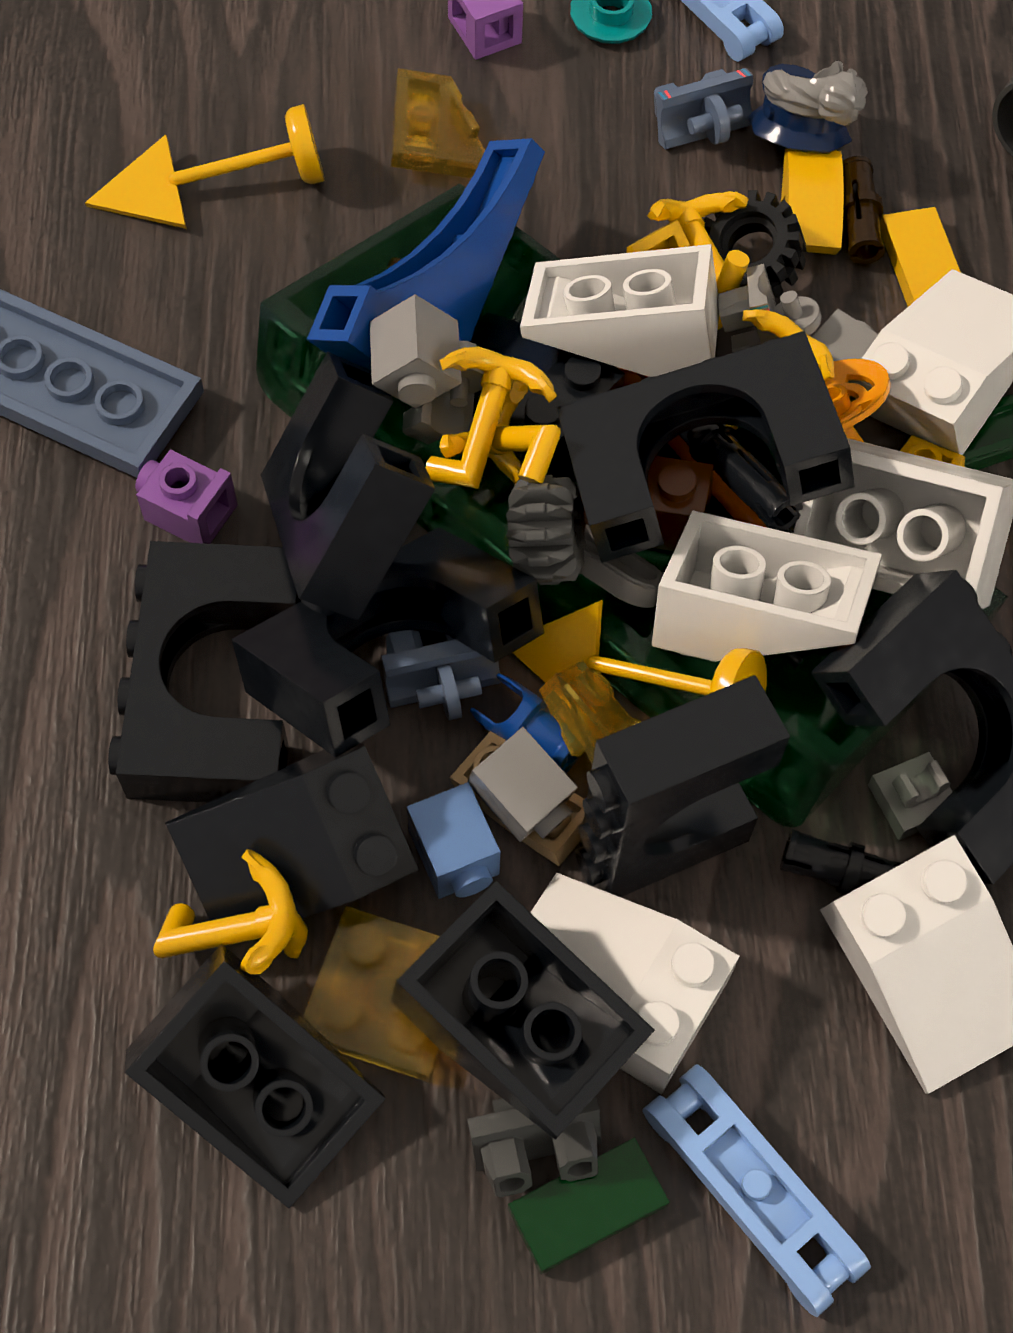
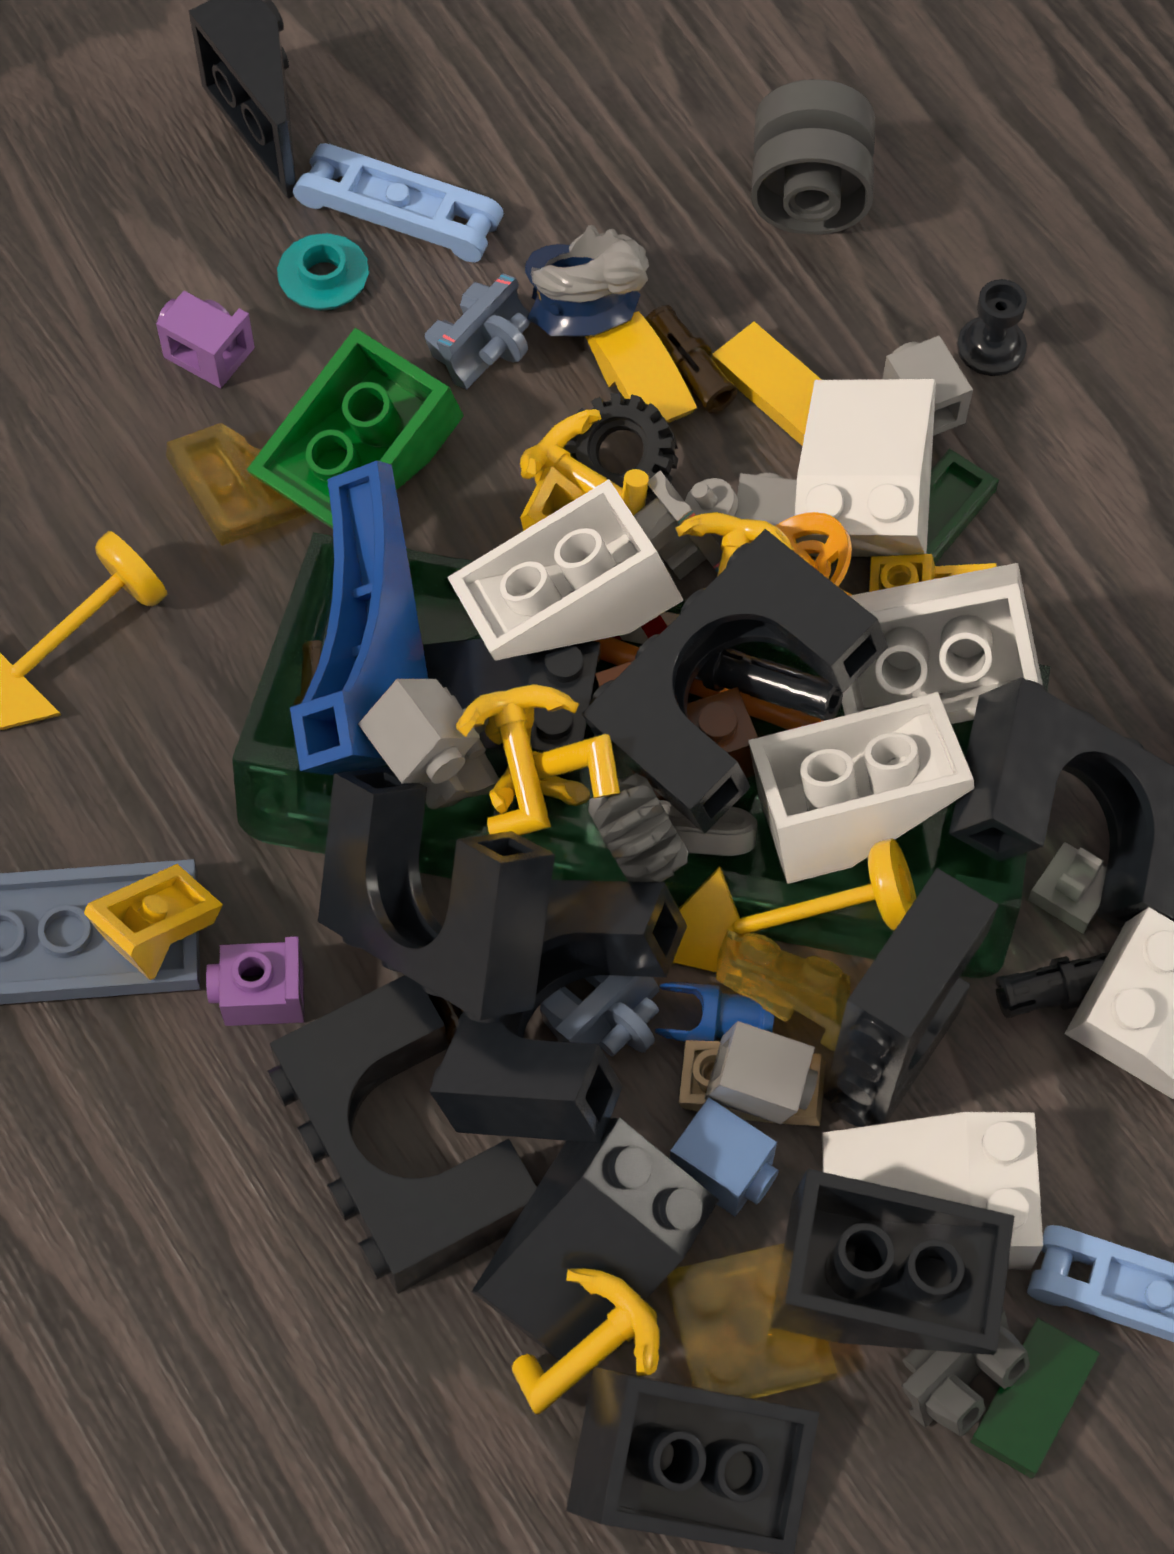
camera: 30 degrees left, 0 degrees up
(125, 391) = (152, 915): none -> yellow slope
(568, 112) = (357, 412): none -> green slope

